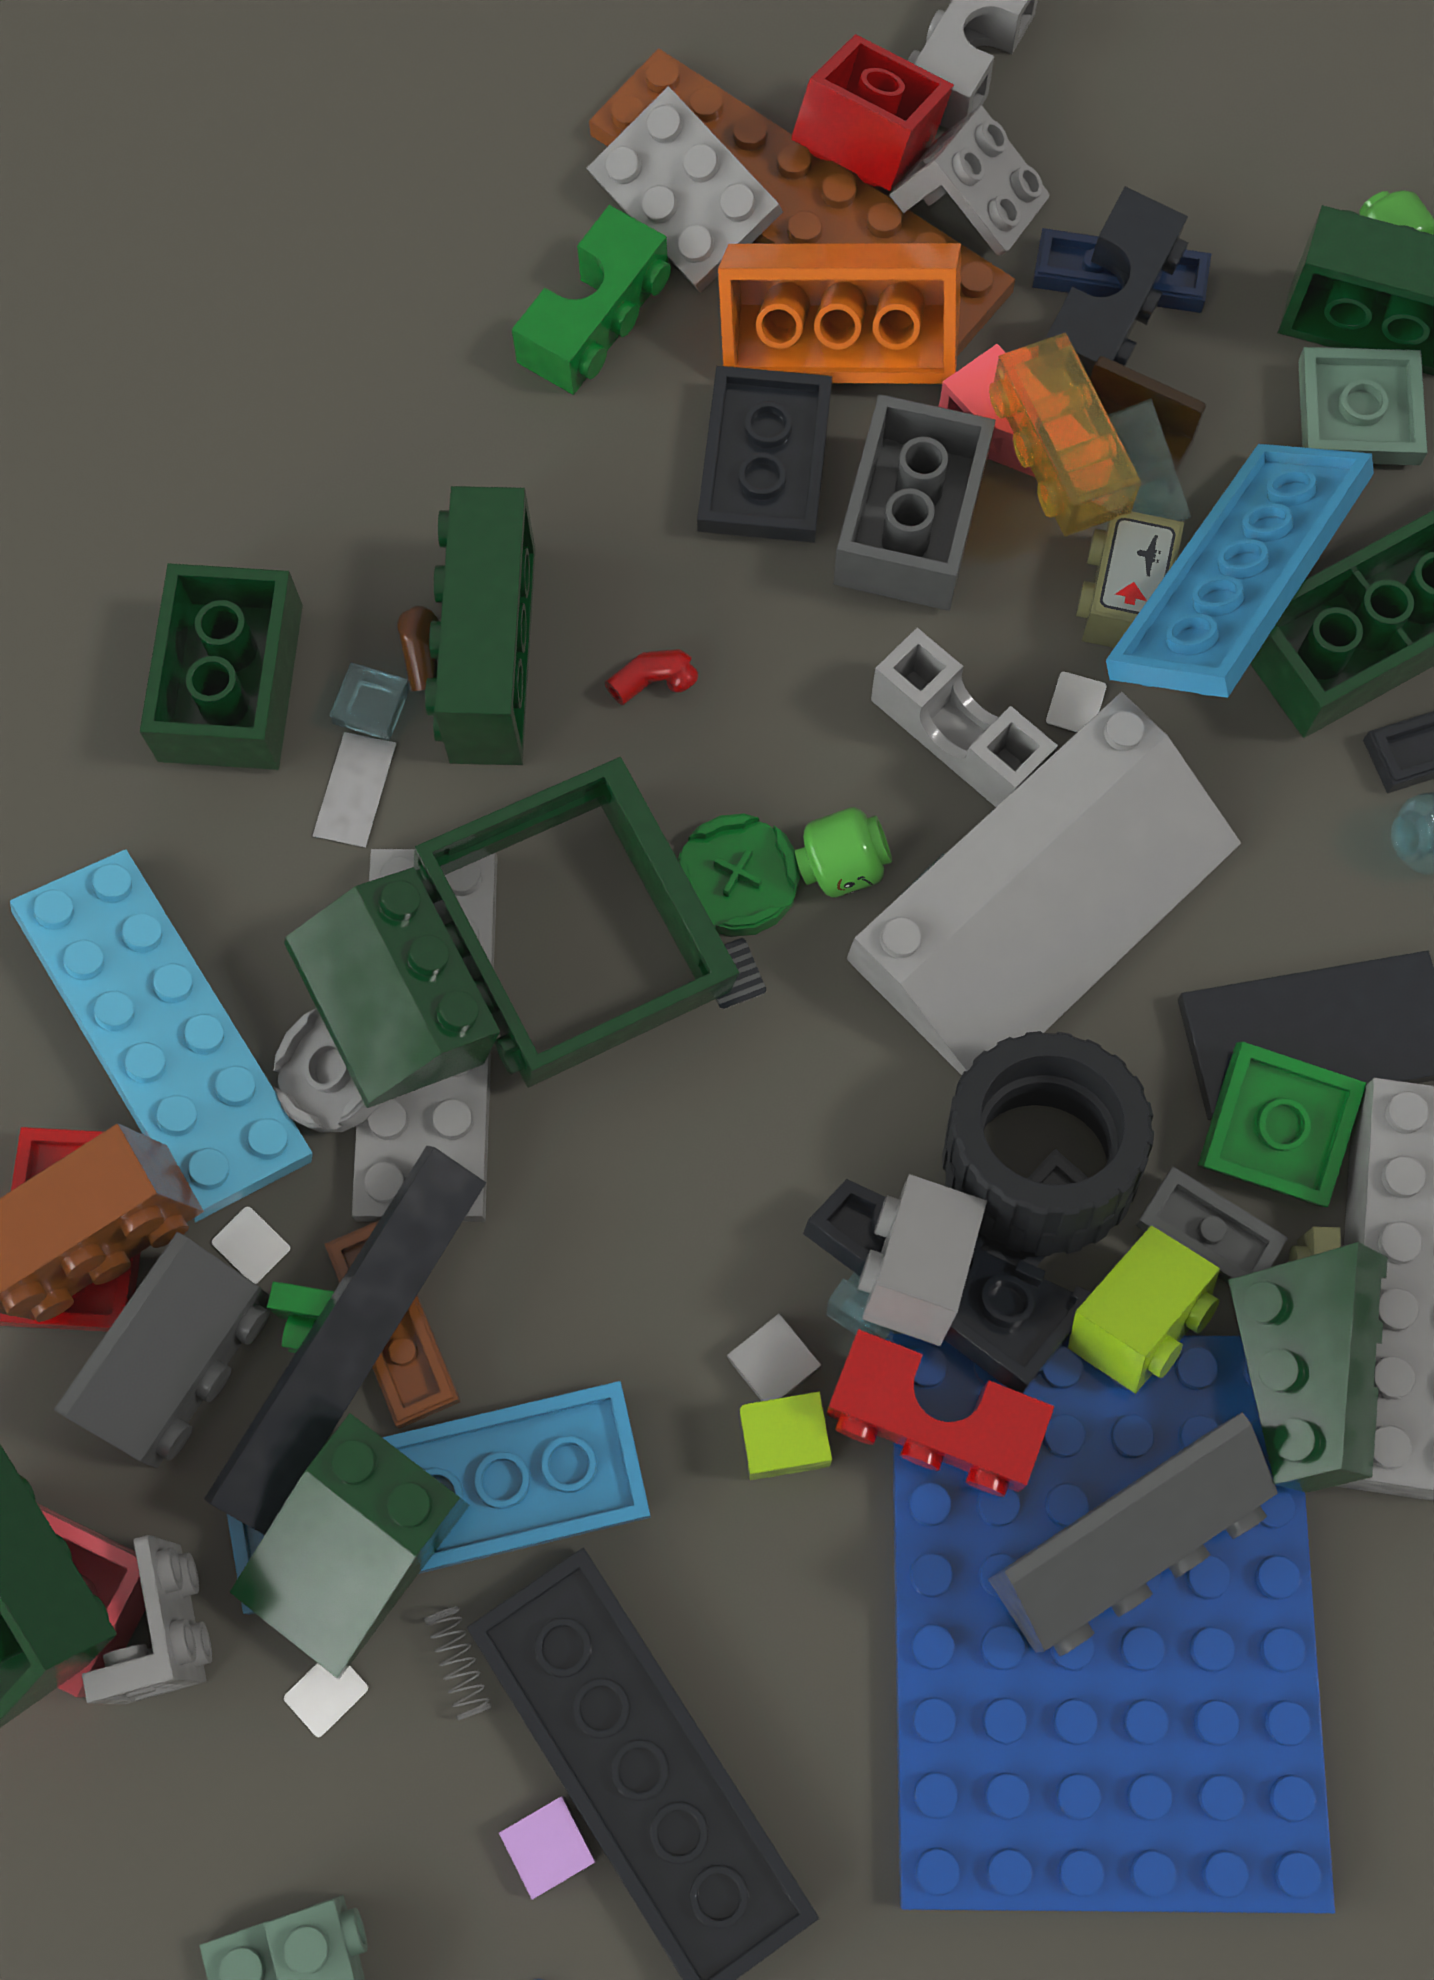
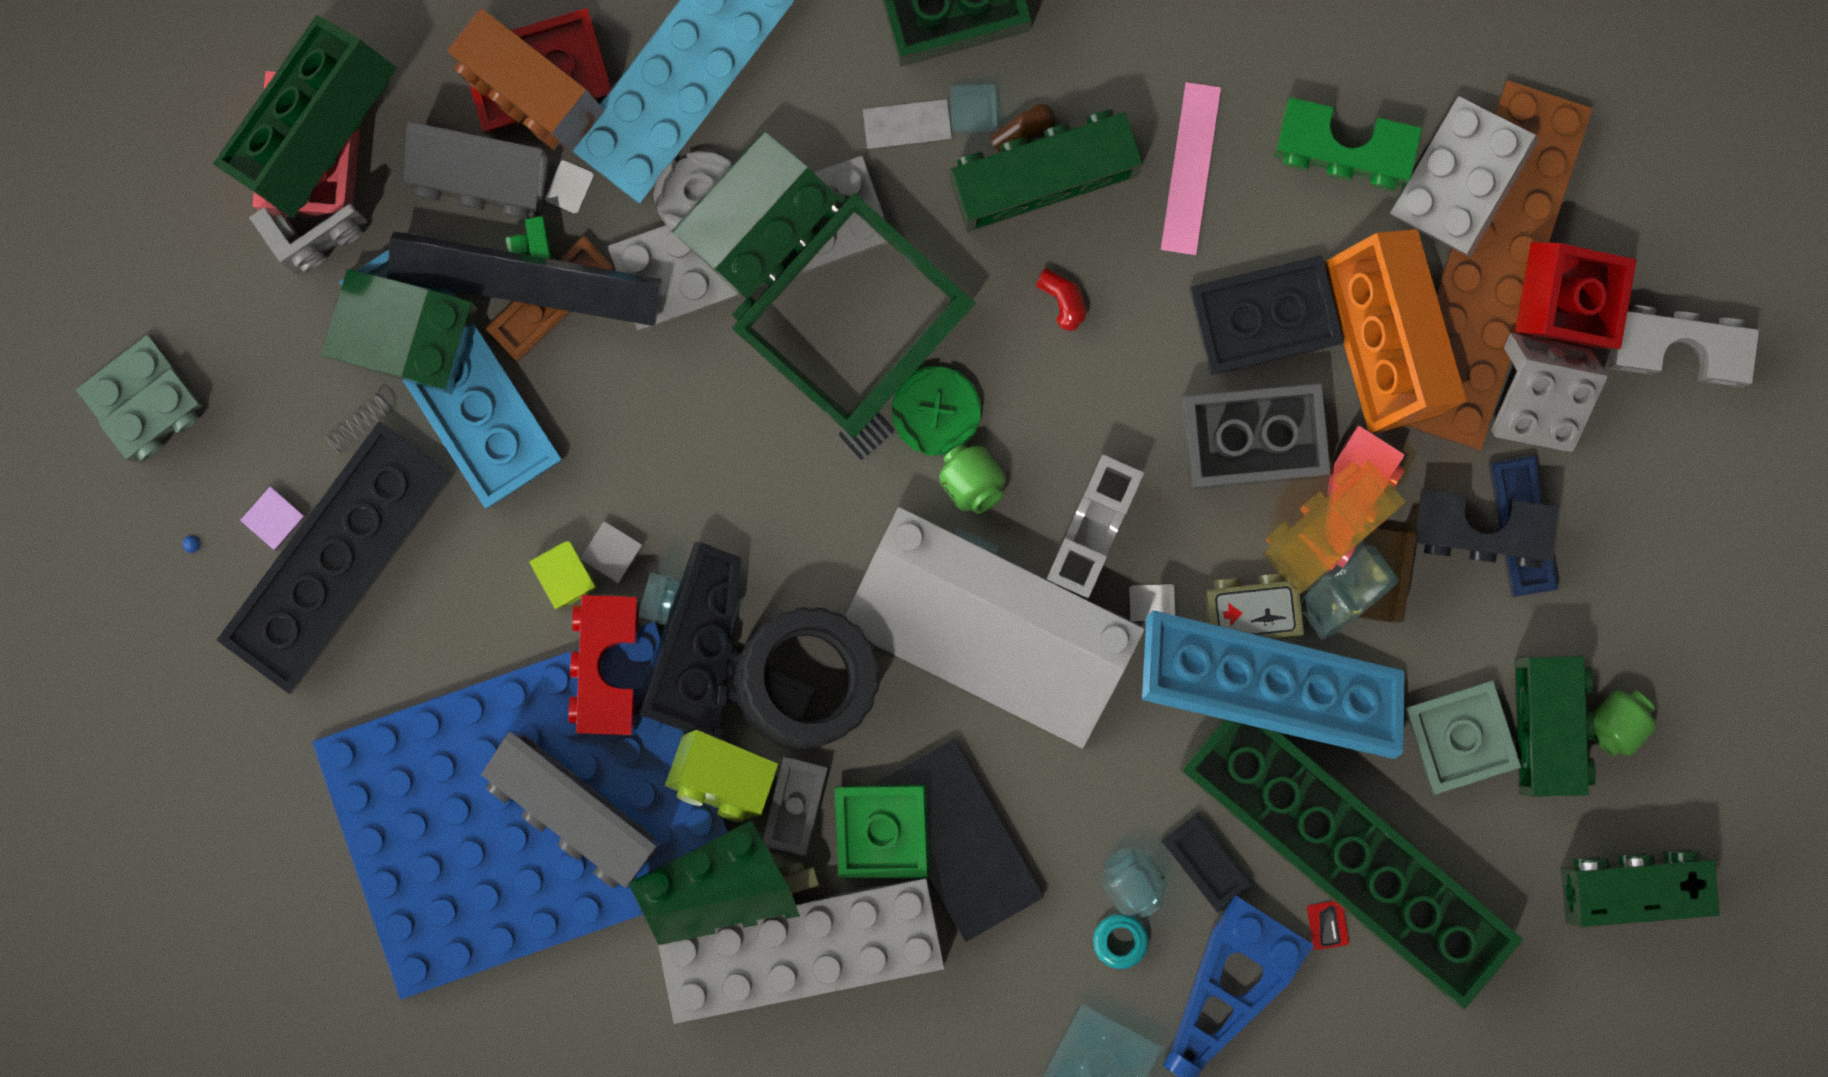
camera: 75 degrees right, 15 degrees up
(323, 1699) = (308, 348): white sticker -> none
(551, 486) = (1190, 168): none -> bright pink sticker
(923, 1261) = (694, 622): light grey brick -> none

